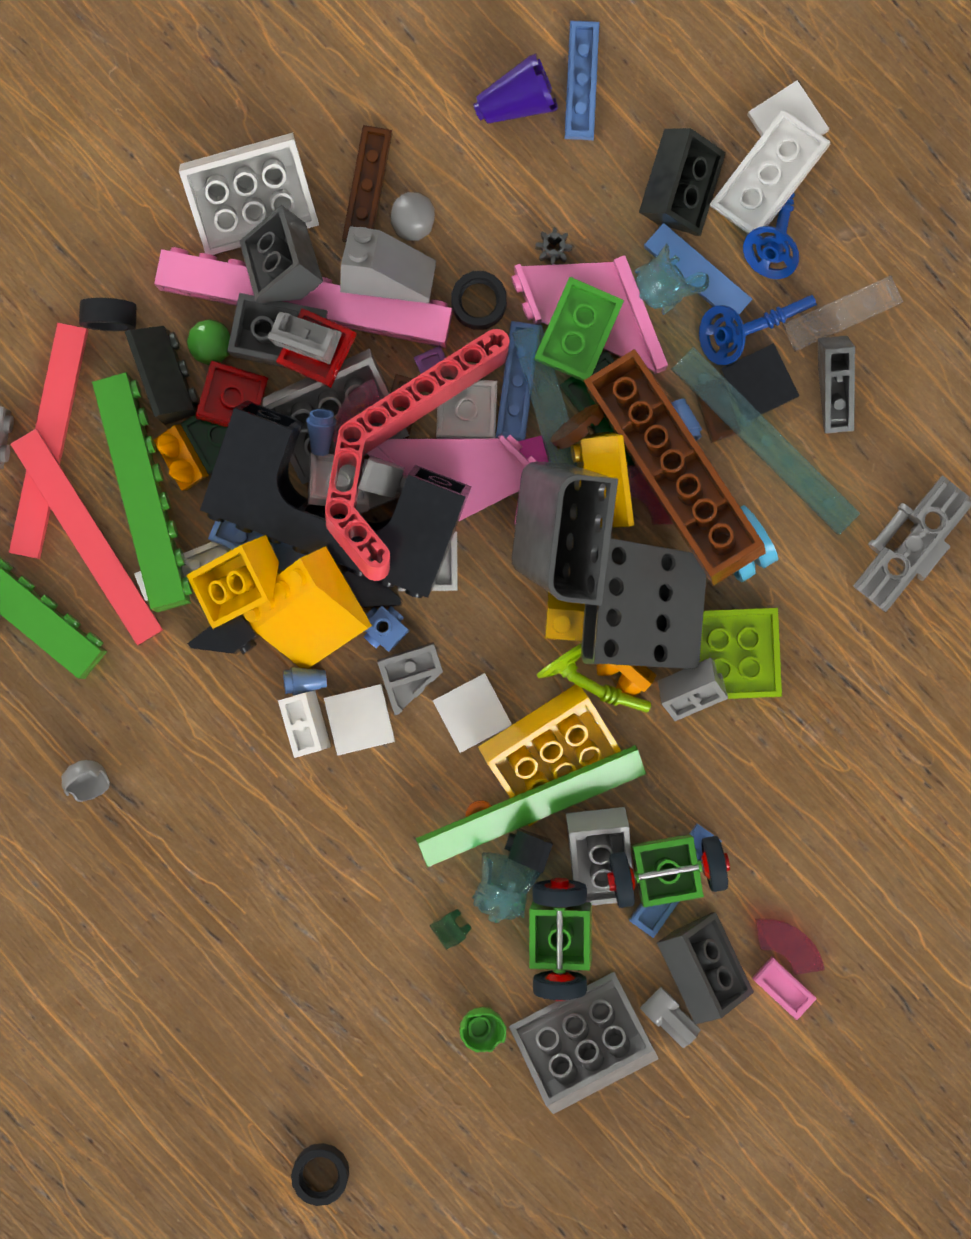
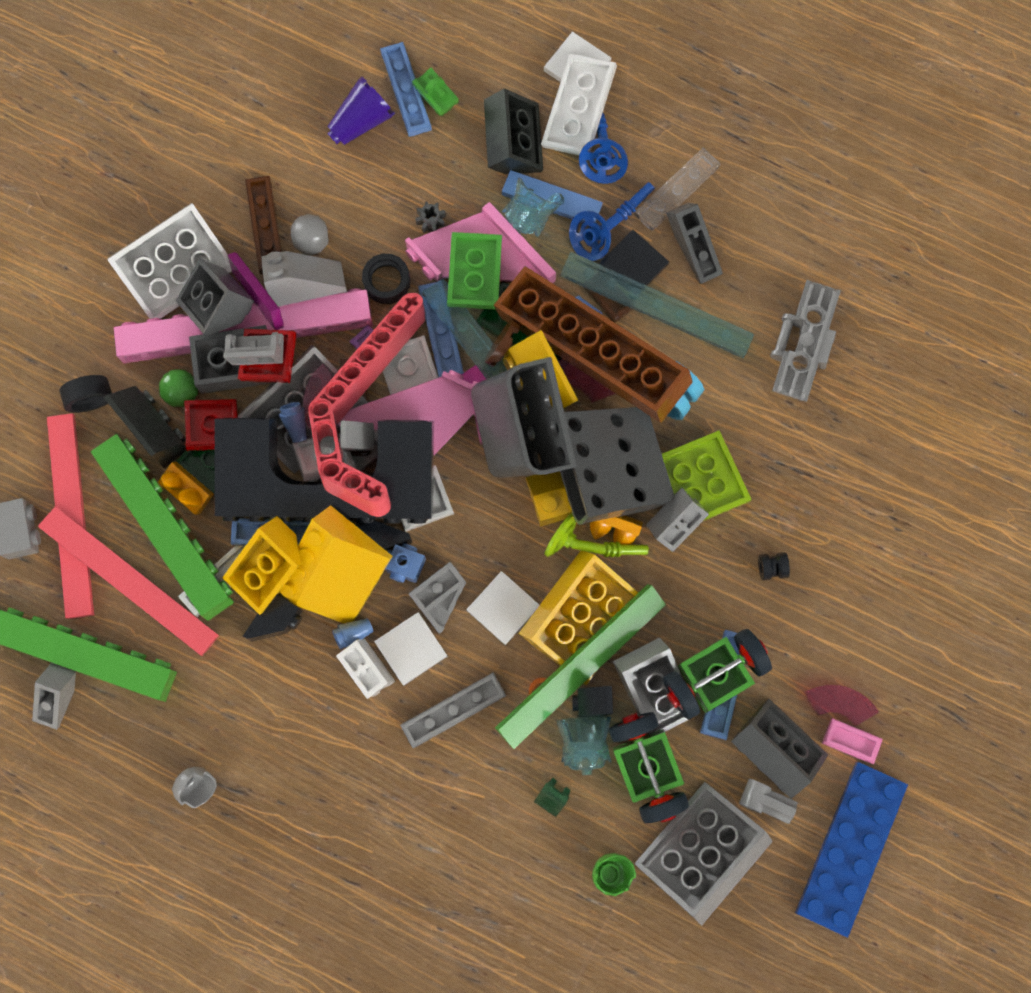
camera: 25 degrees left, 10 degrees down
(329, 266) = (256, 291): none -> magenta tile
(380, 800) = (453, 710): none -> light grey tile
(613, 98) = (435, 92): none -> bright green hips
(738, 1095) = (851, 849): none -> blue plate
(776, 776) = (773, 566): none -> black wheel

